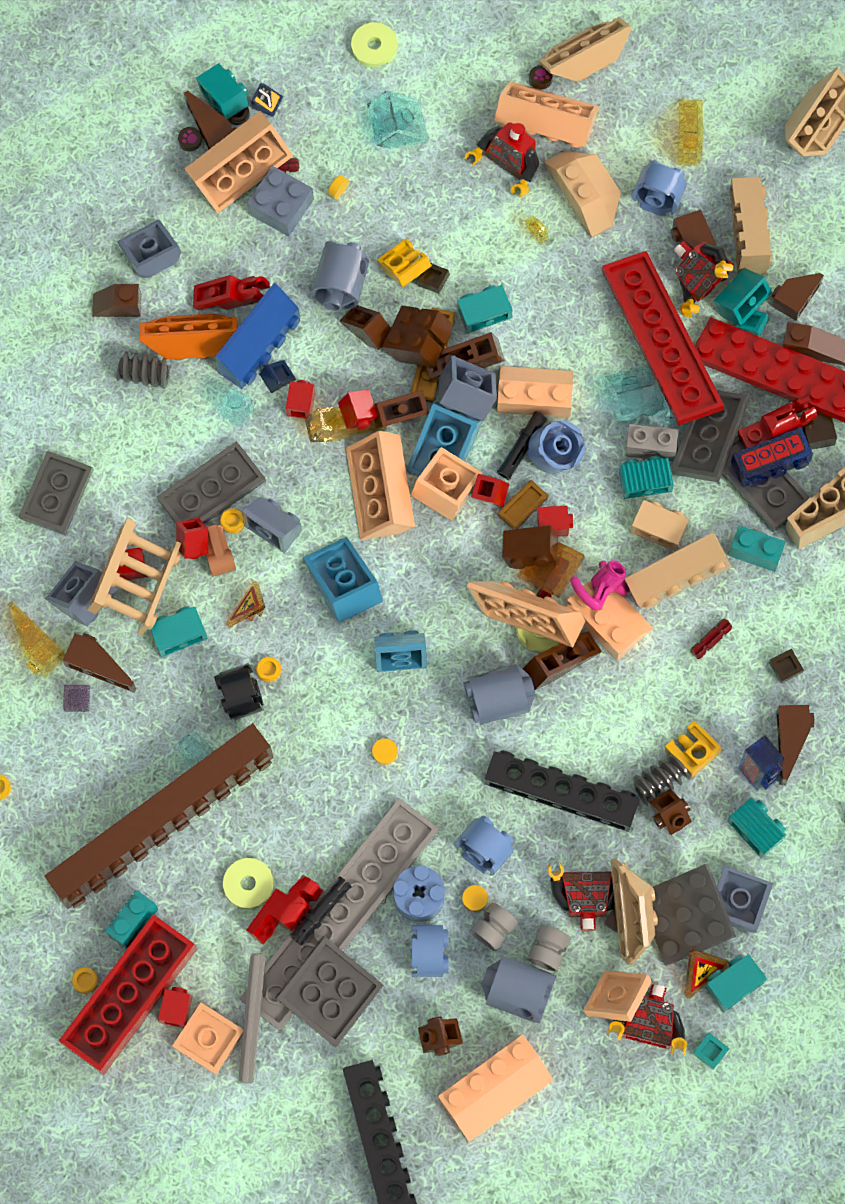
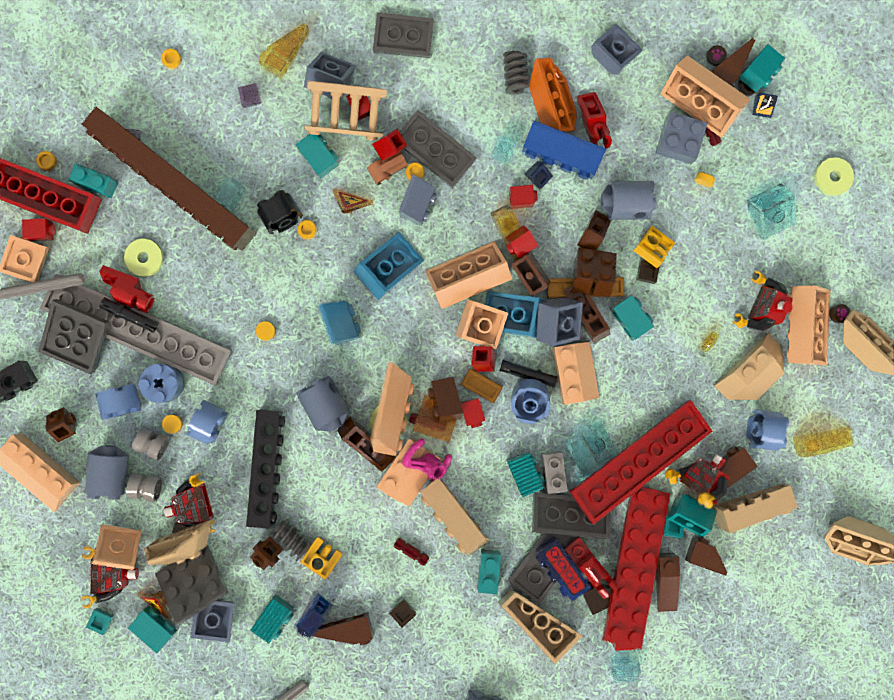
camera: 70 degrees right, 15 degrees up
(91, 659) = (280, 100): reddish brown slope -> none
(117, 301) = (567, 38): reddish brown slope -> none
(660, 525) = (489, 493): tan brick -> none

